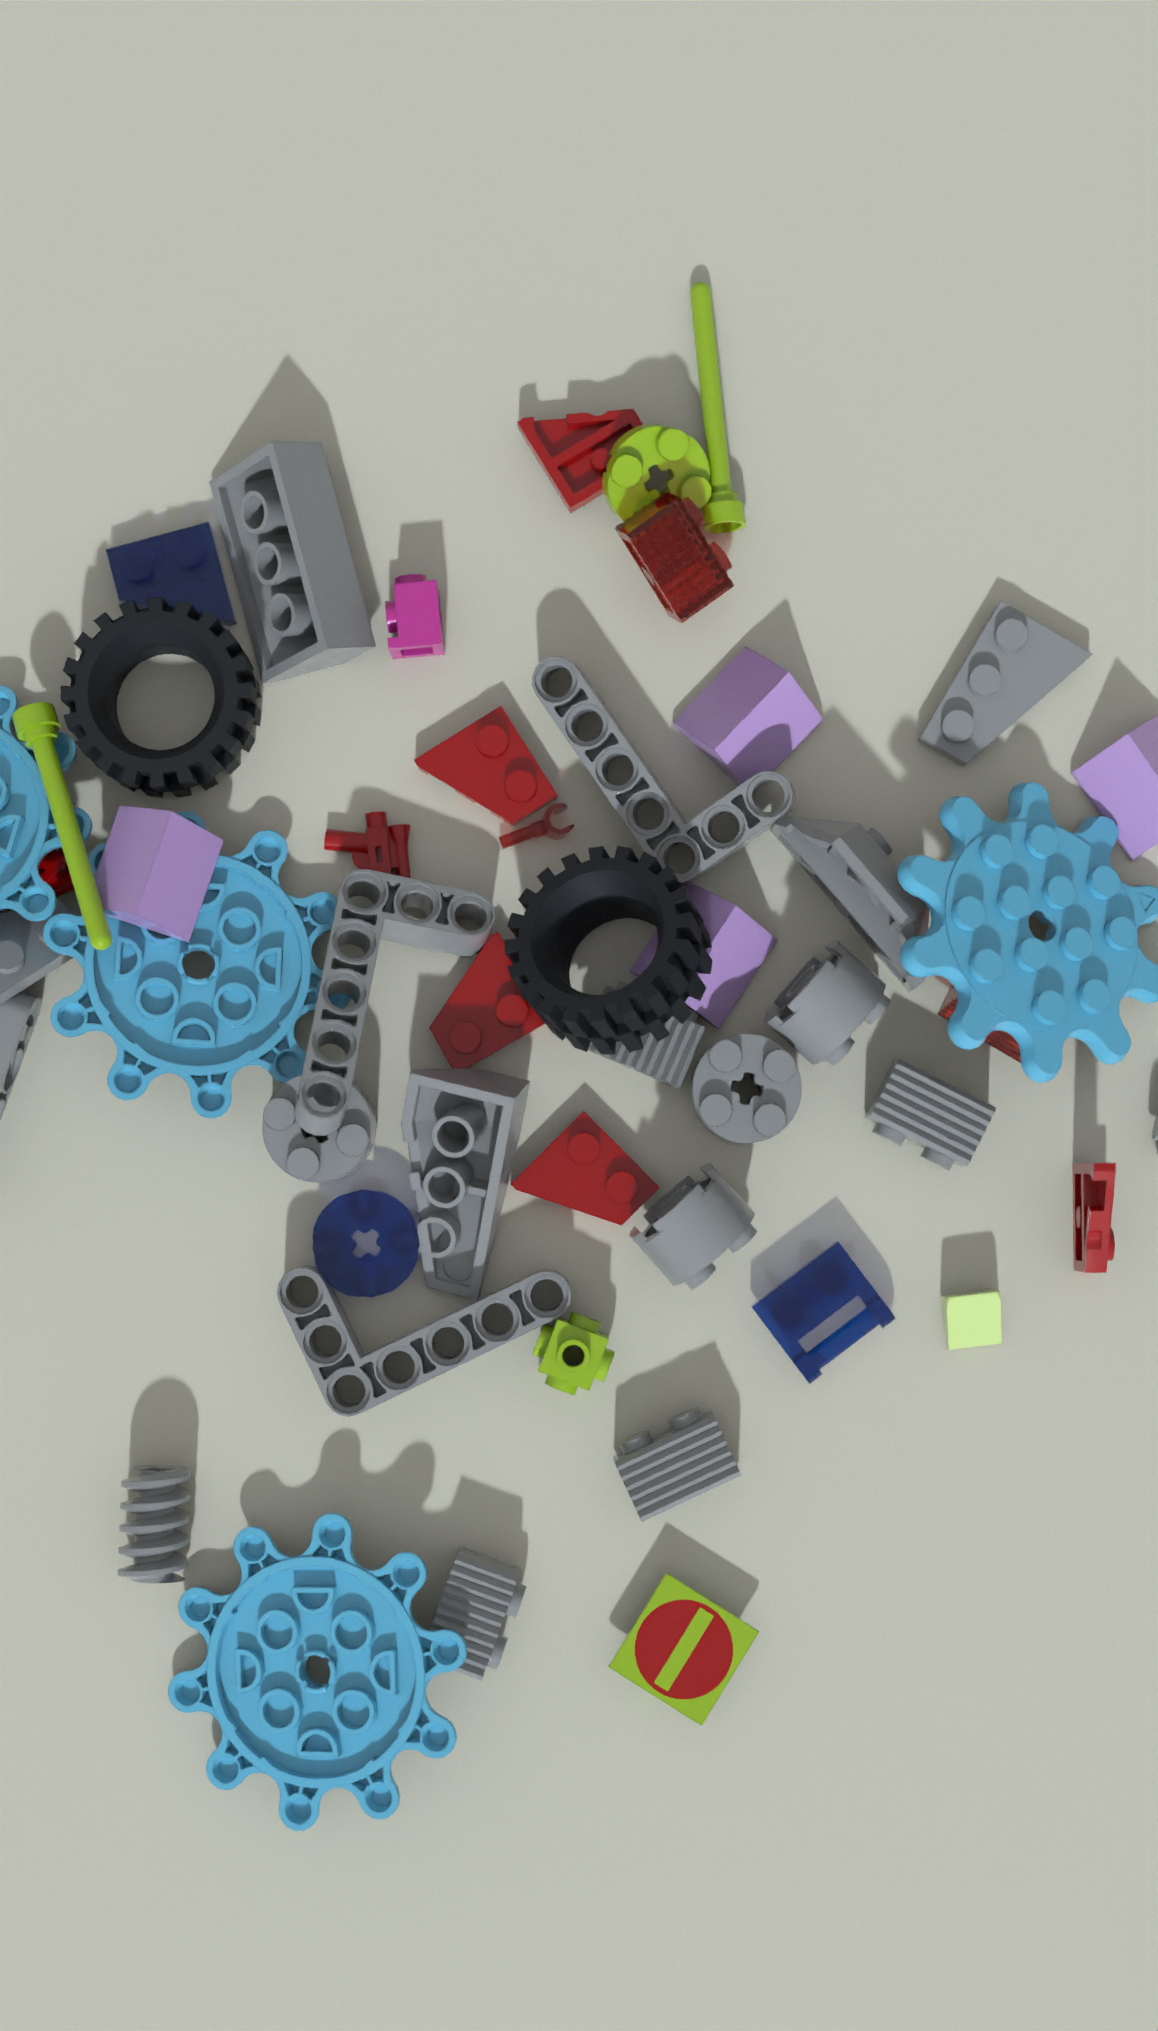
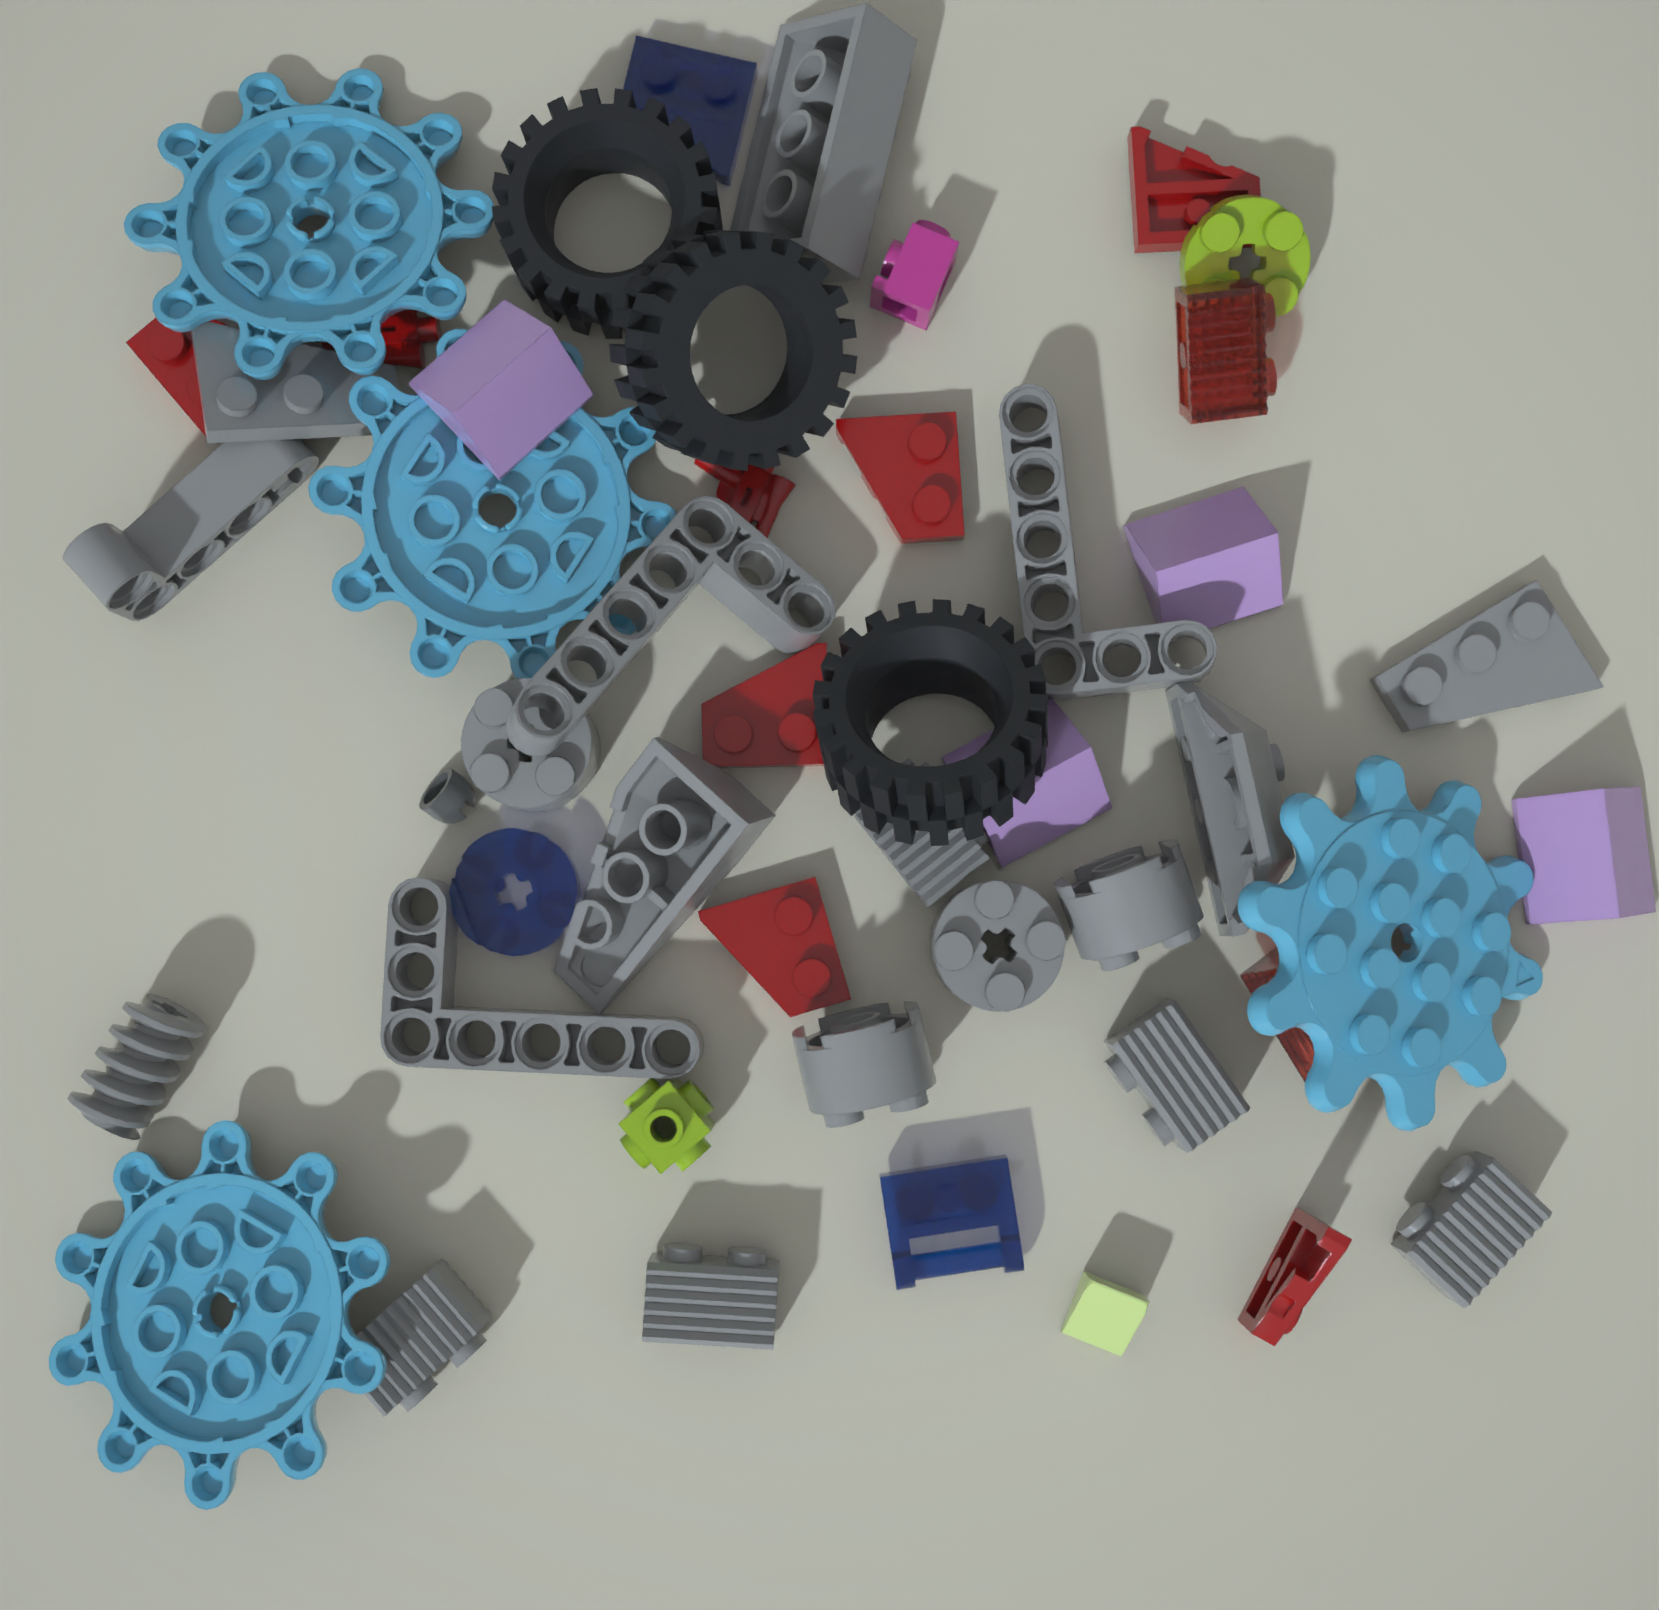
camera: 25 degrees right, 0 degrees up
(38, 727) = (464, 174): lime piece -> none
(255, 766) = (661, 335): none -> black tyre
(275, 1199) = (446, 796): none -> dark grey hinge
(537, 829) = (927, 560): clear red hand -> none
(683, 1649) = (614, 1497): piece -> none
(724, 510) = (1297, 332): lime piece -> none

